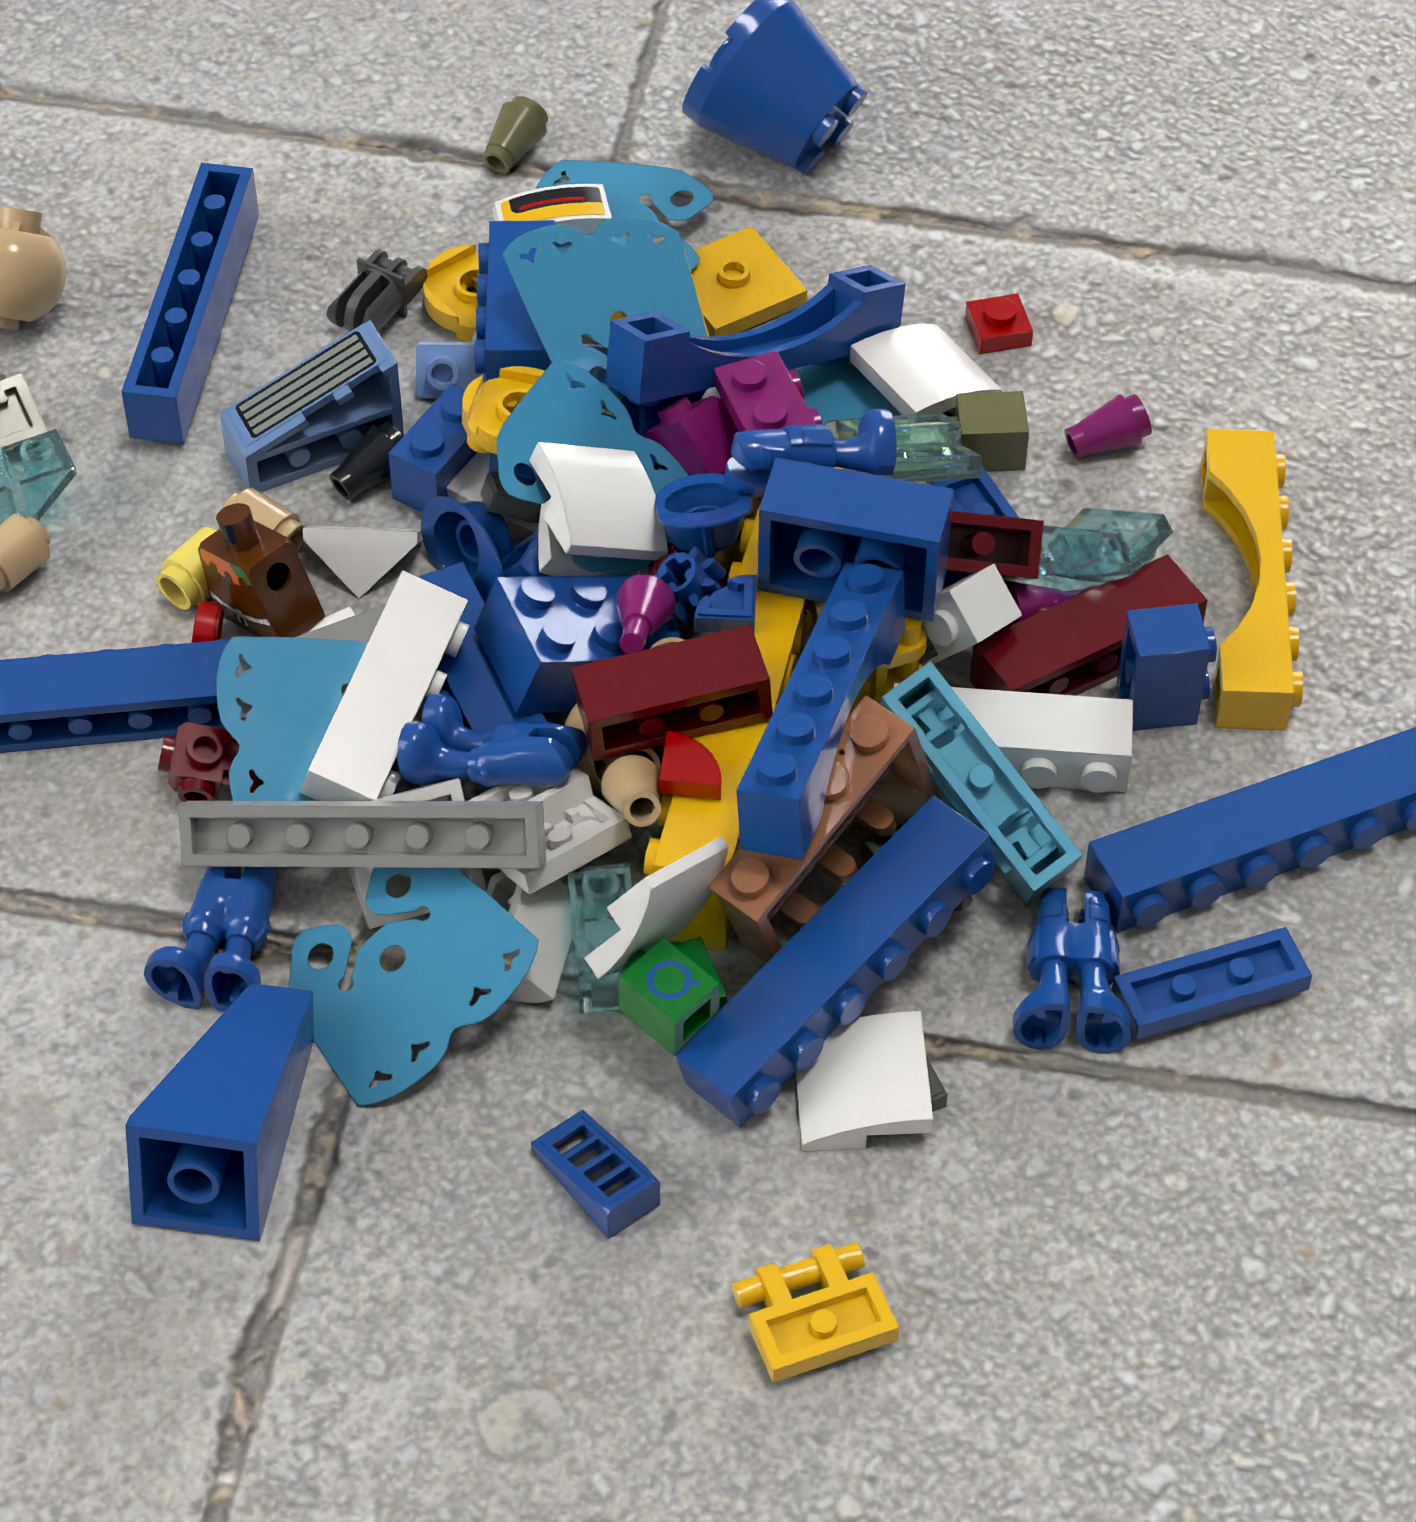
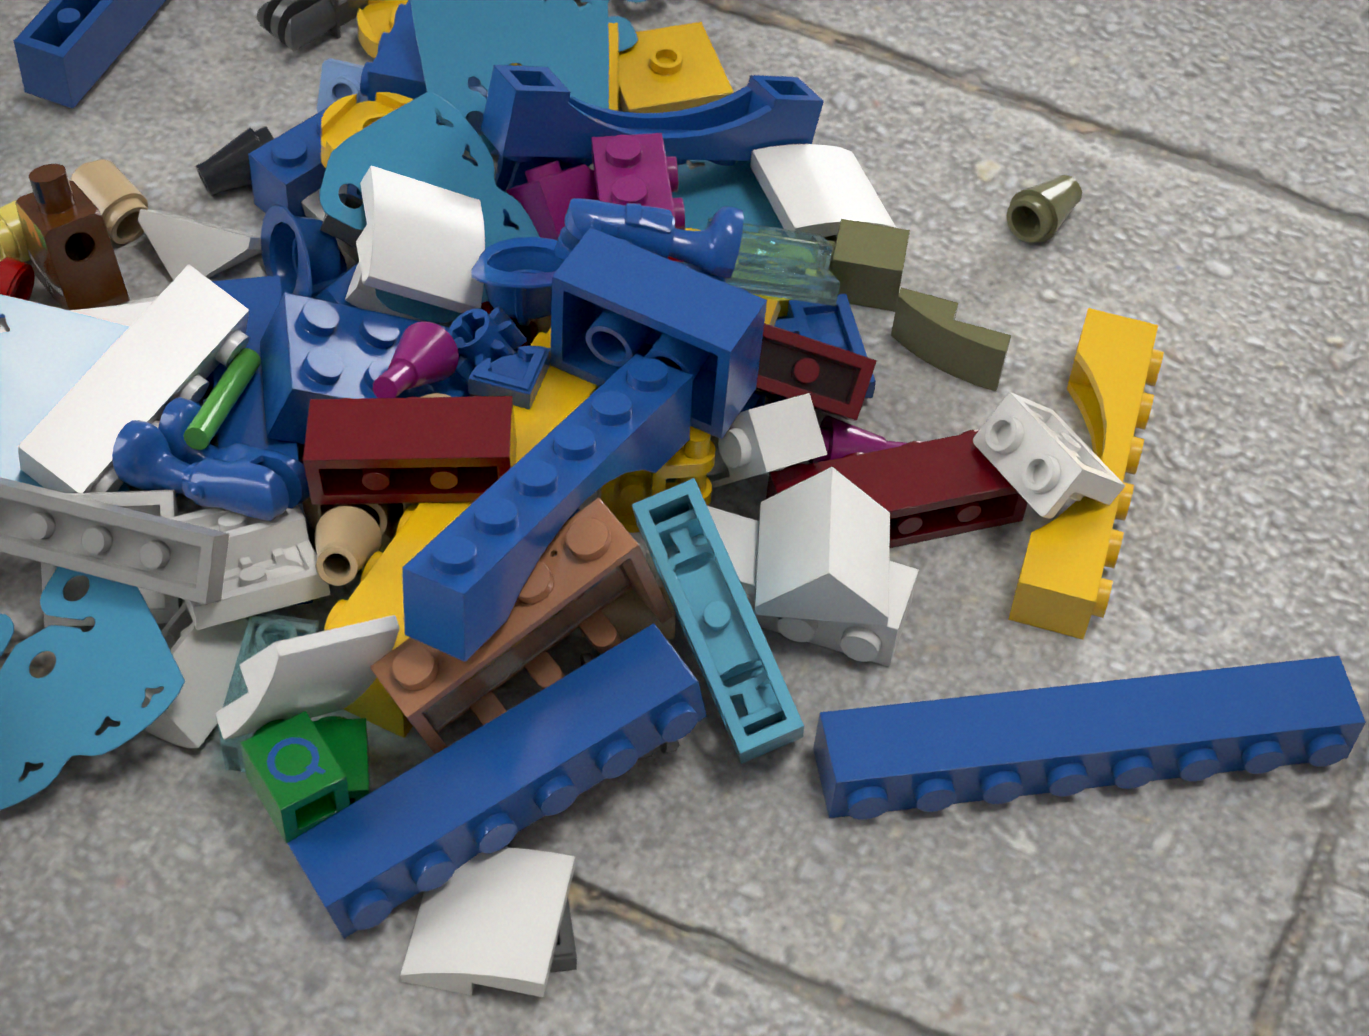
camera: 10 degrees right, 0 degrees up
(314, 411) = (197, 101): medium blue wedge -> none
(468, 687) = (222, 399): none -> bright green piece
(607, 1212) = (180, 996): blue slope -> none
(689, 768) = (397, 530): red tile -> none
(999, 323) = (915, 164): red plate -> none
(1047, 703) = (823, 553): none -> white slope
(1068, 482) = (961, 349): none -> olive slope
(1079, 953) = (766, 830): blue piece -> none
(1102, 544) = (935, 403): clear light blue slope -> none
(1111, 427) = (993, 287): magenta cone -> none
(1131, 342) = (1042, 208): none -> olive cone
(1165, 665) = (965, 541): blue brick -> none
(1212, 574) = (1043, 457): none -> white bracket
(1212, 982) = (910, 901): blue plate -> none

